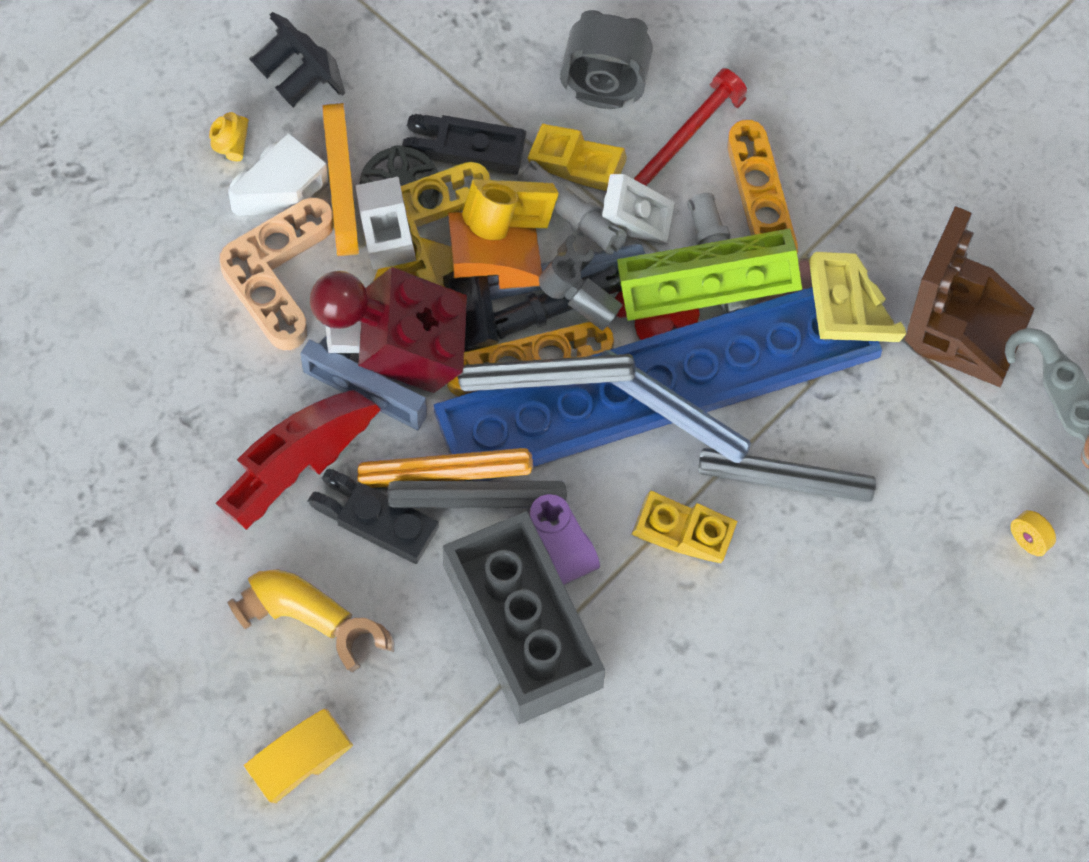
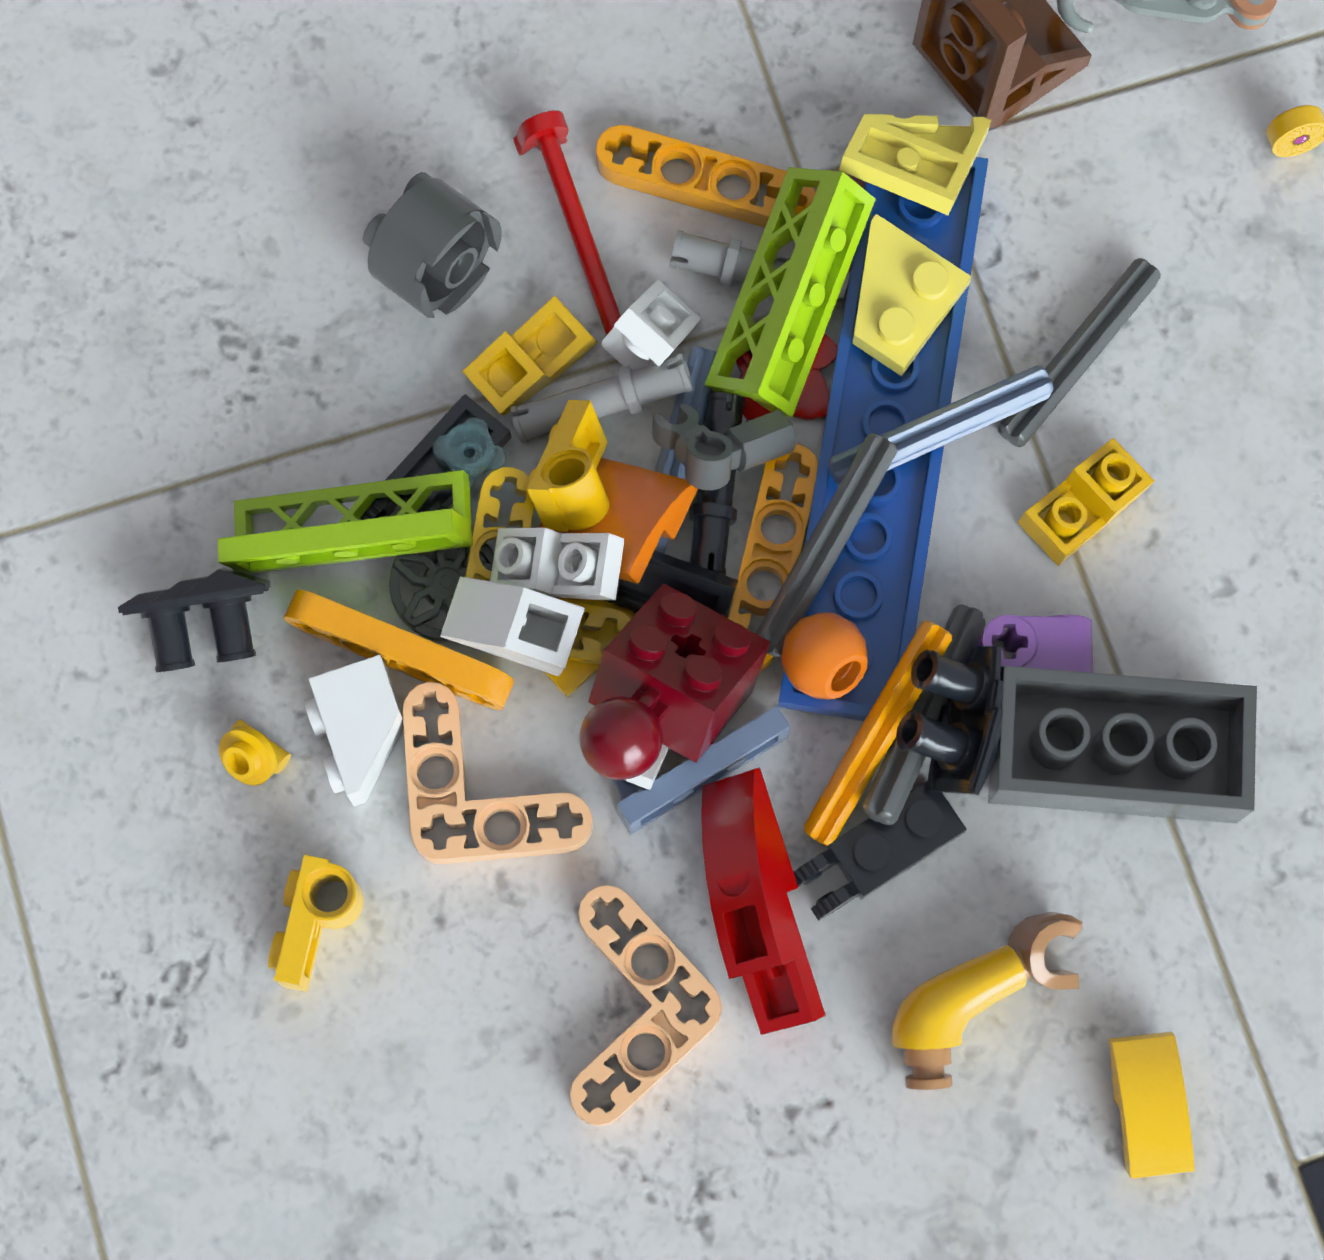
camera: 60 degrees left, 10 degrees up
(140, 215) = (295, 949): none -> yellow plate
(193, 441) = (658, 1020): none -> light nougat beam
(395, 115) = (350, 537): none -> lime fence
(438, 224) = (559, 562): none -> white slope
(464, 518) = (969, 725): none -> black connector
(471, 402) = (824, 655): none -> orange piece
(490, 137) = (470, 435): none -> clear light blue plate
(748, 341) = (902, 295): none -> light yellow wing

